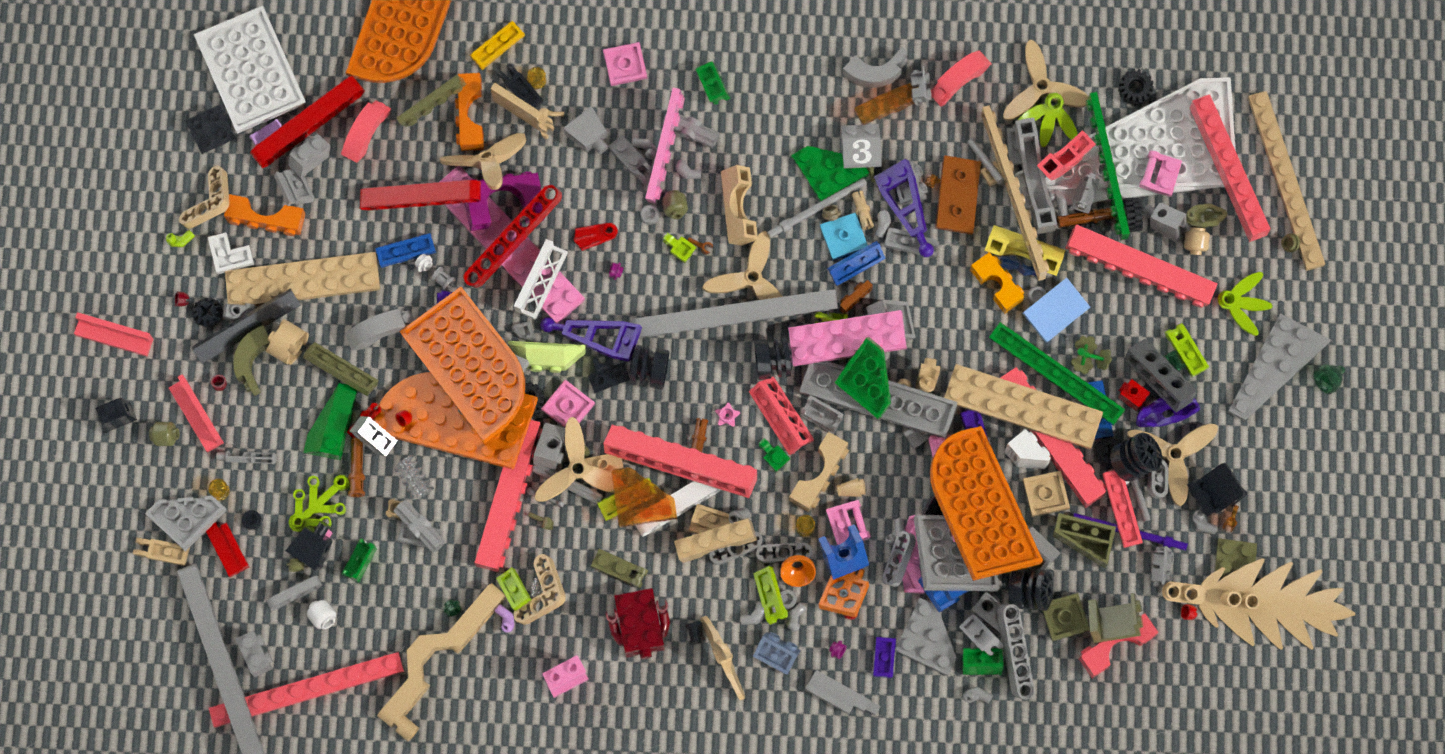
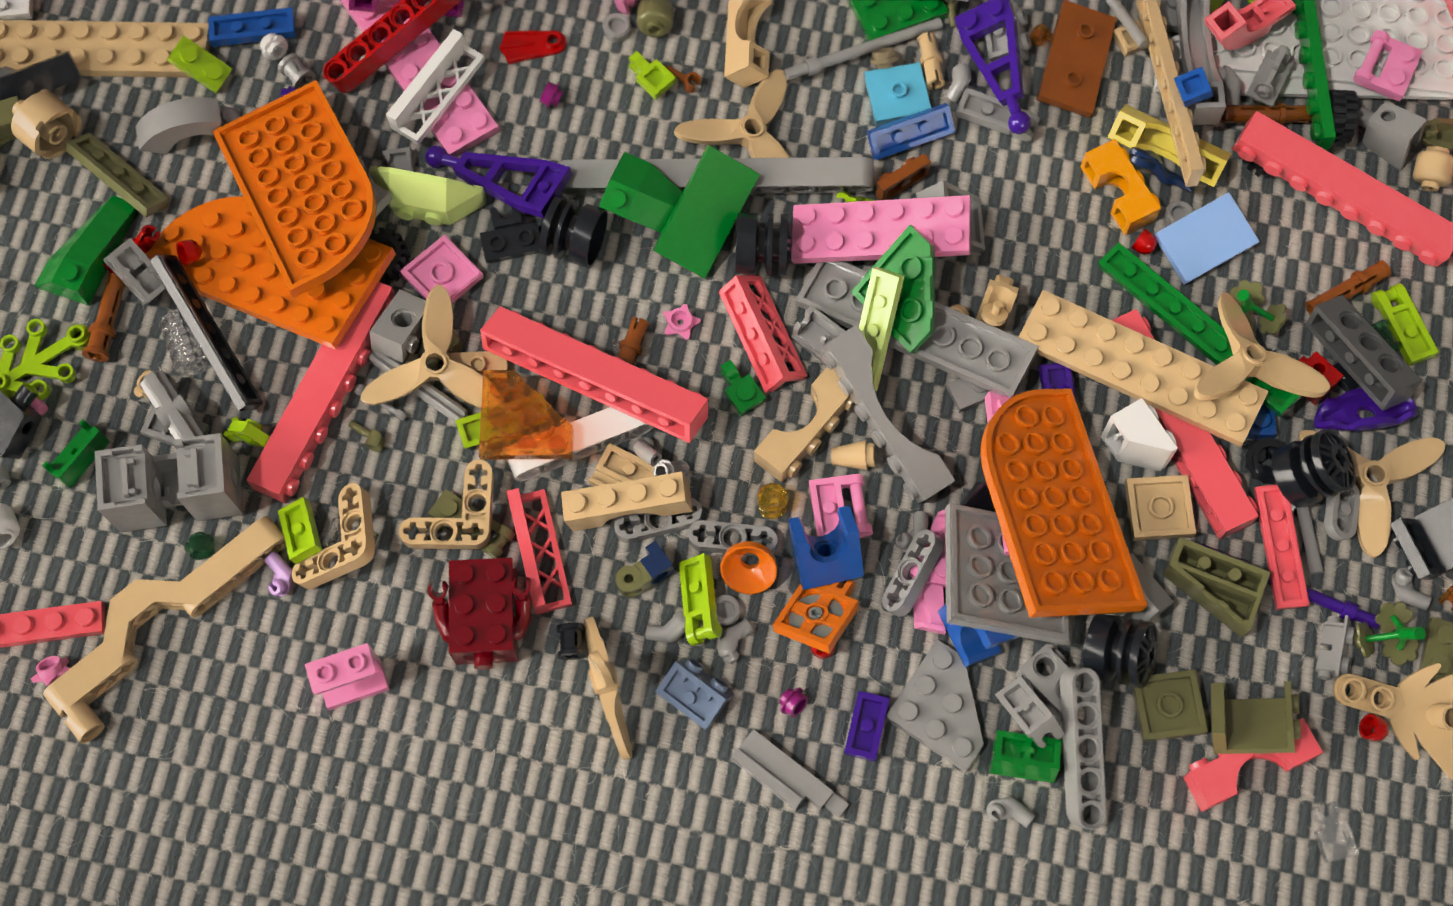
camera: 10 degrees right, 5 degrees down
(378, 283) = (199, 64): none -> lime plate
(378, 699) = (50, 669): none -> bright pink plate
(411, 574) = (139, 487): none -> light grey piece
(427, 469) = (206, 332): none -> black tile
(469, 531) = (246, 431): none -> lime plate
(620, 566) = (469, 520): none -> tan beam
(657, 578) = (527, 547): none -> coral fence
(697, 339) = (640, 193): none -> green wedge
(719, 504) = (646, 451): none -> light grey arm
(733, 342) = (706, 211): none -> green tile
(734, 583) = (645, 573): none -> leg
(842, 430) = (920, 469): none -> light grey arch
(853, 406) = (879, 315): none -> yellowish green plate
(1017, 318) = (1145, 243): none -> red hinge
(1034, 215) = (1193, 86): none -> blue plate
(1101, 395) = (1253, 360): none -> tan piece
(1155, 326) = (1357, 283): none -> dark orange pin
(1172, 682) = (1334, 839): none -> clear plate
(1199, 557) = (1398, 645): none -> olive plant

